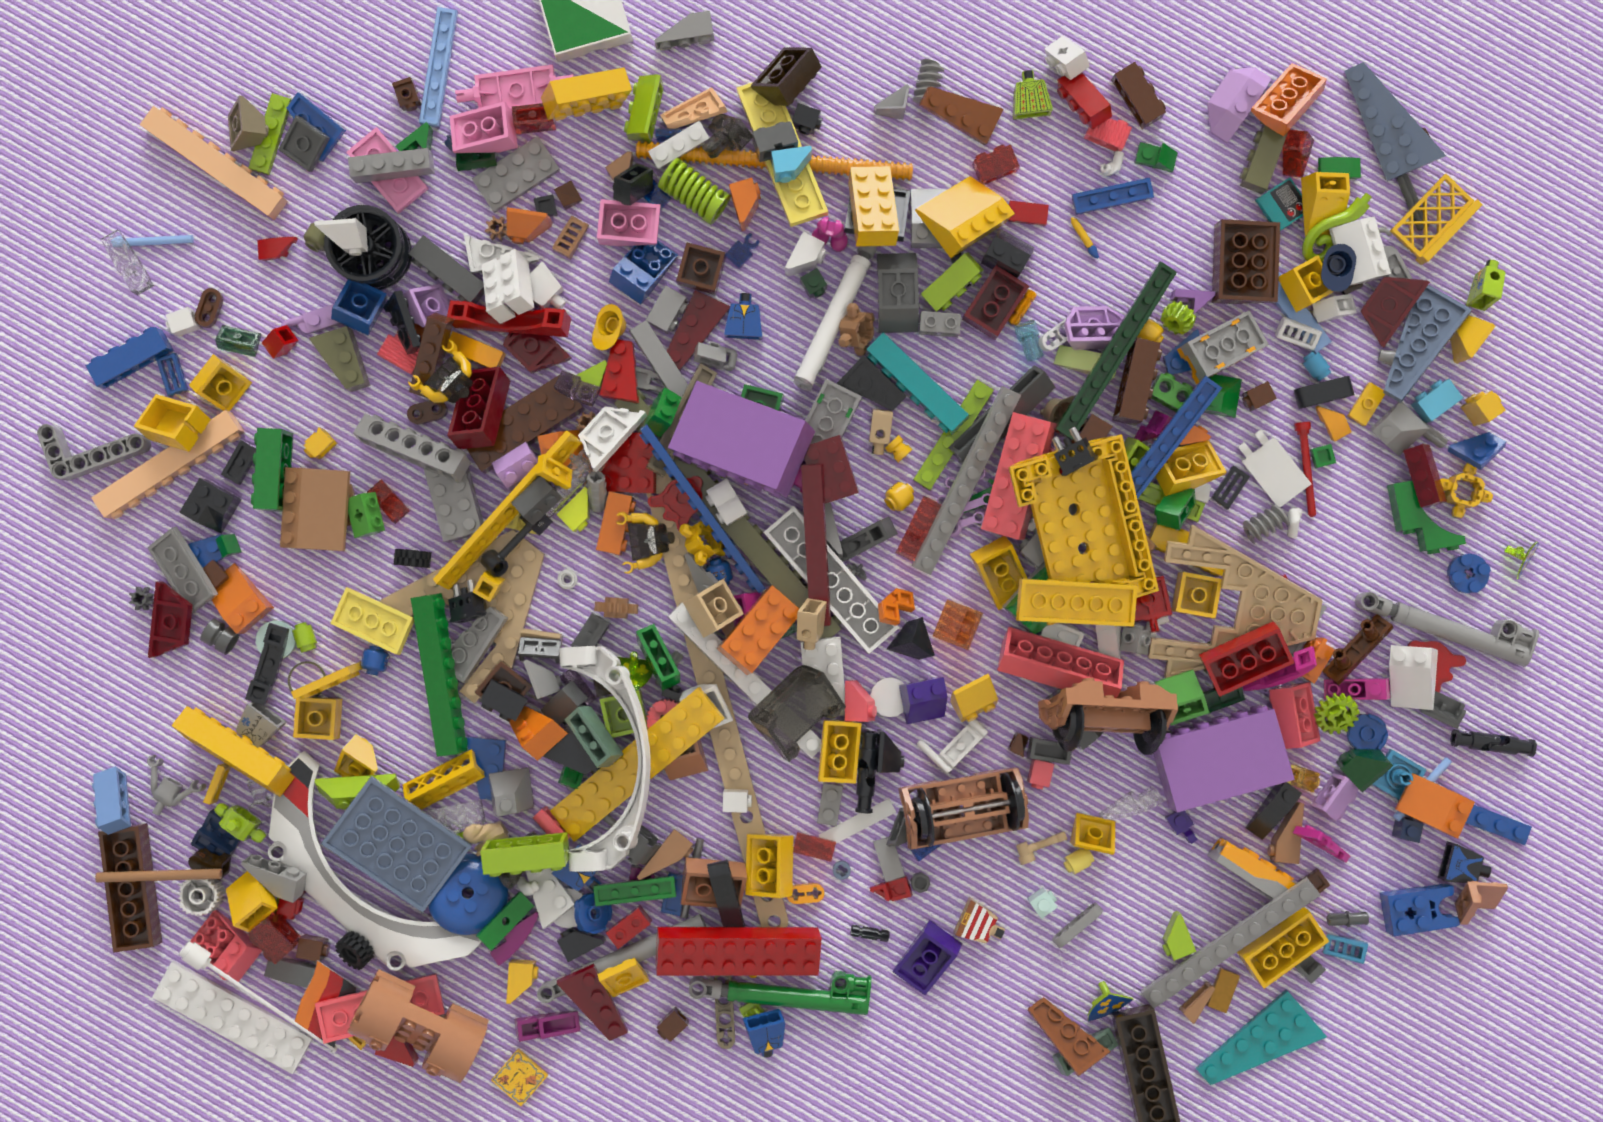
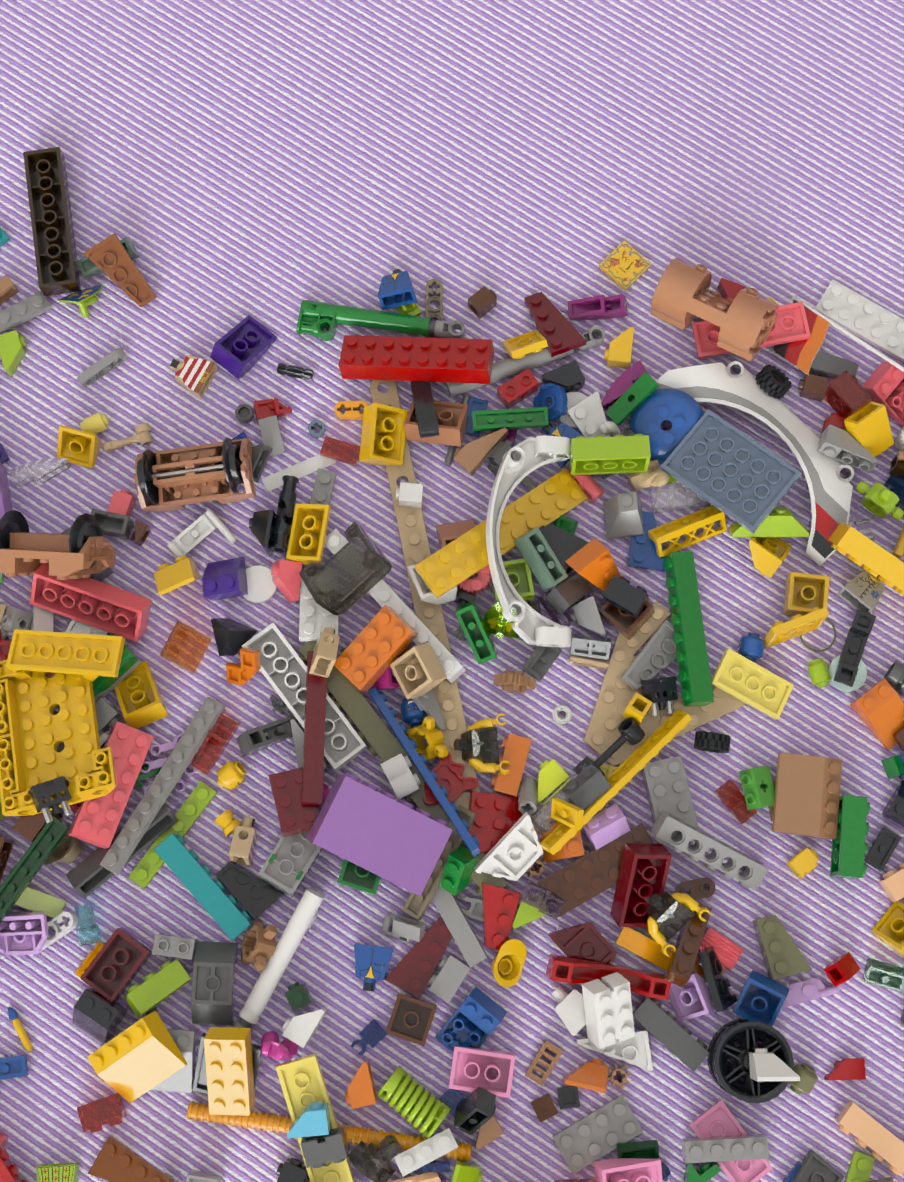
camera: 175 degrees left, 10 degrees down
(1029, 213) = (72, 1059): red tile -> none
(1043, 902) = (132, 388): light aqua brick -> none

